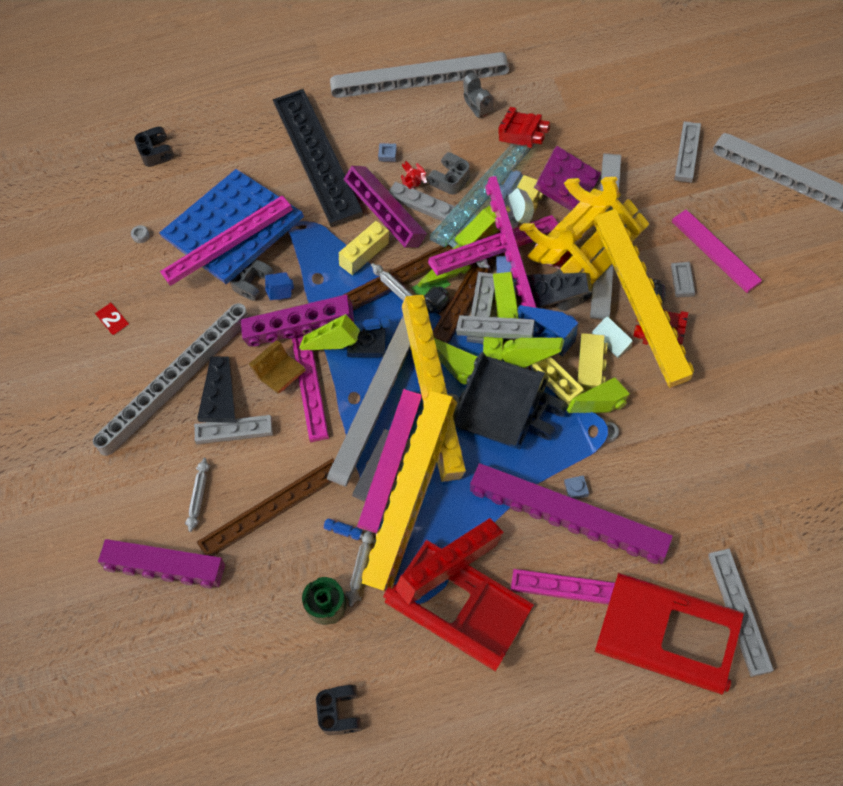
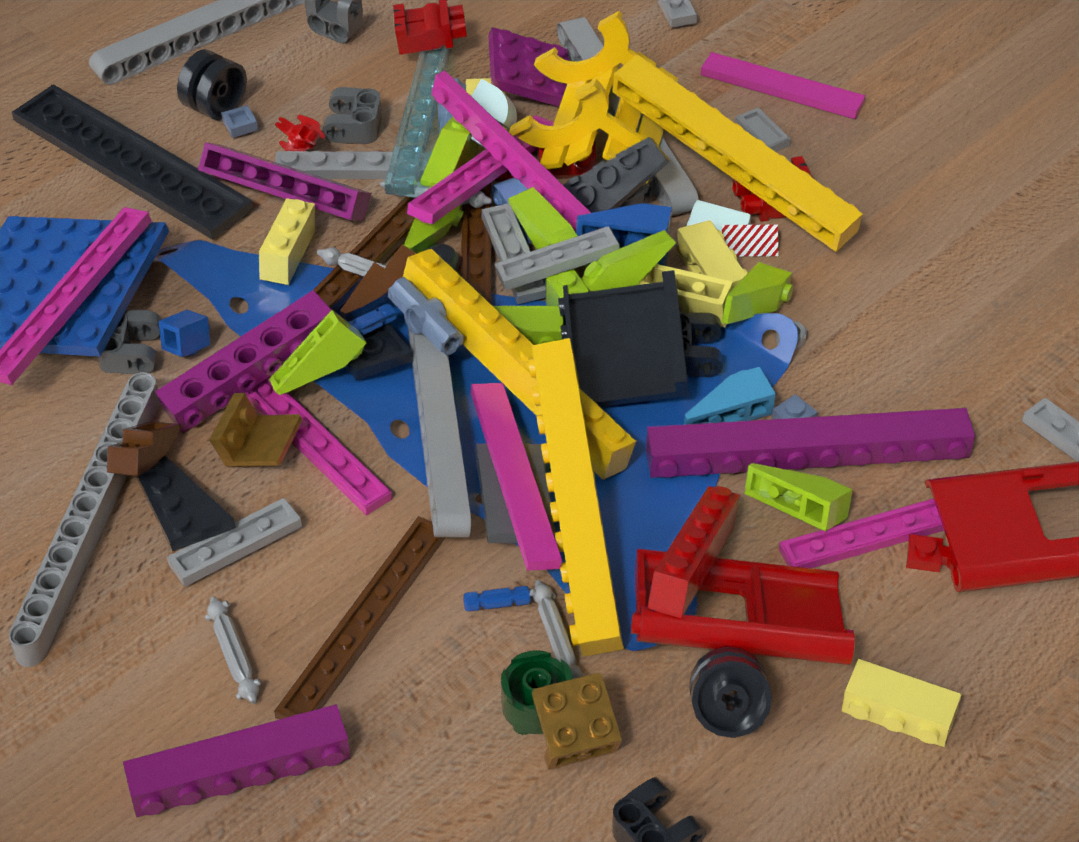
camera: 35 degrees left, 15 degrees down
(215, 352) = (141, 447): none -> reddish brown slope
(330, 630) = (576, 720): none -> pearl gold bracket
(381, 123) = (211, 84): none -> black wheel
(390, 300) = (374, 287): none -> reddish brown slope
(399, 336) = (425, 316): none -> sand blue piece
(417, 656) = (710, 687): none -> black wheel
(513, 707) = (901, 703): none -> light yellow brick
(543, 547) = (799, 494): none -> lime slope
(544, 465) = (738, 398): none -> dark azure slope
(592, 616) = (927, 553): none -> red plate
(624, 356) = (751, 239): none -> sticker

